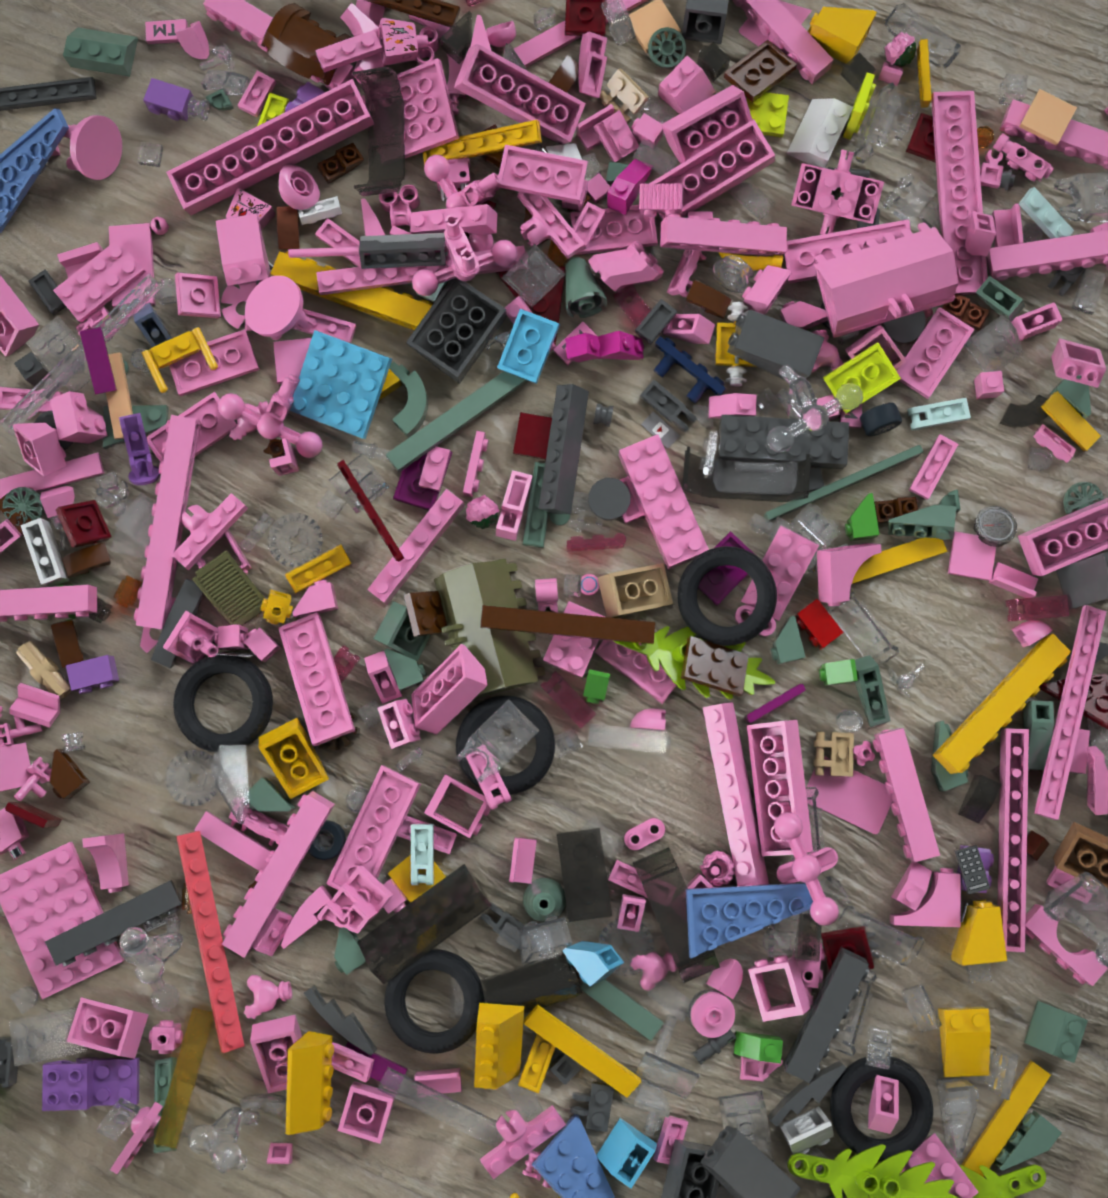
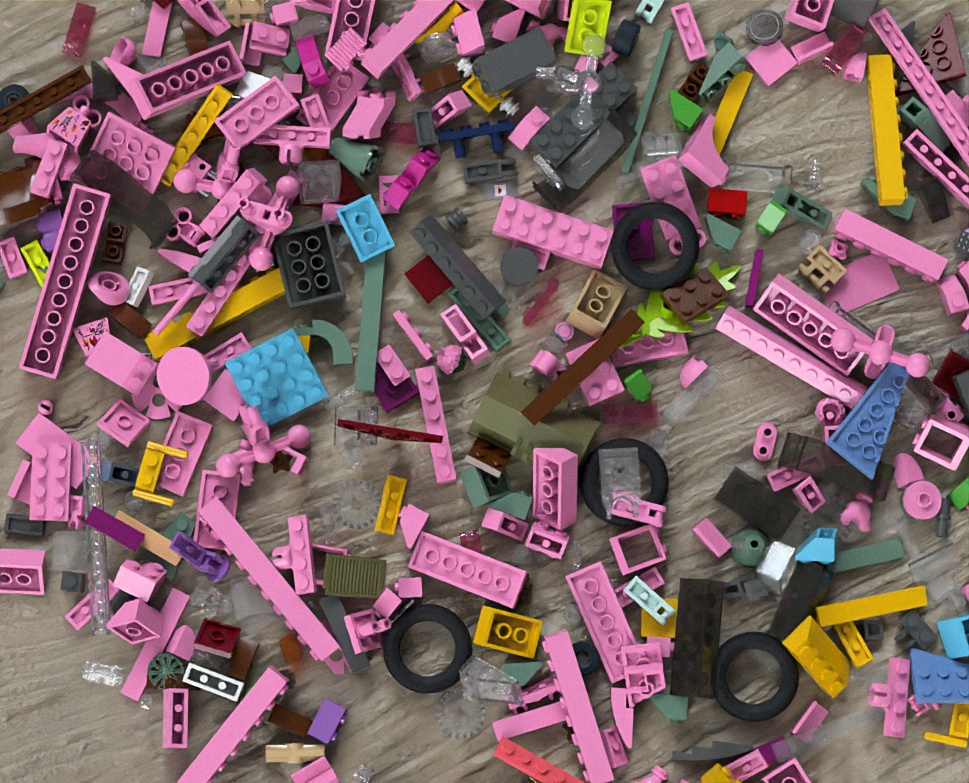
camera: 50 degrees left, 0 degrees up
(276, 600) = (393, 555): yellow brick -> none

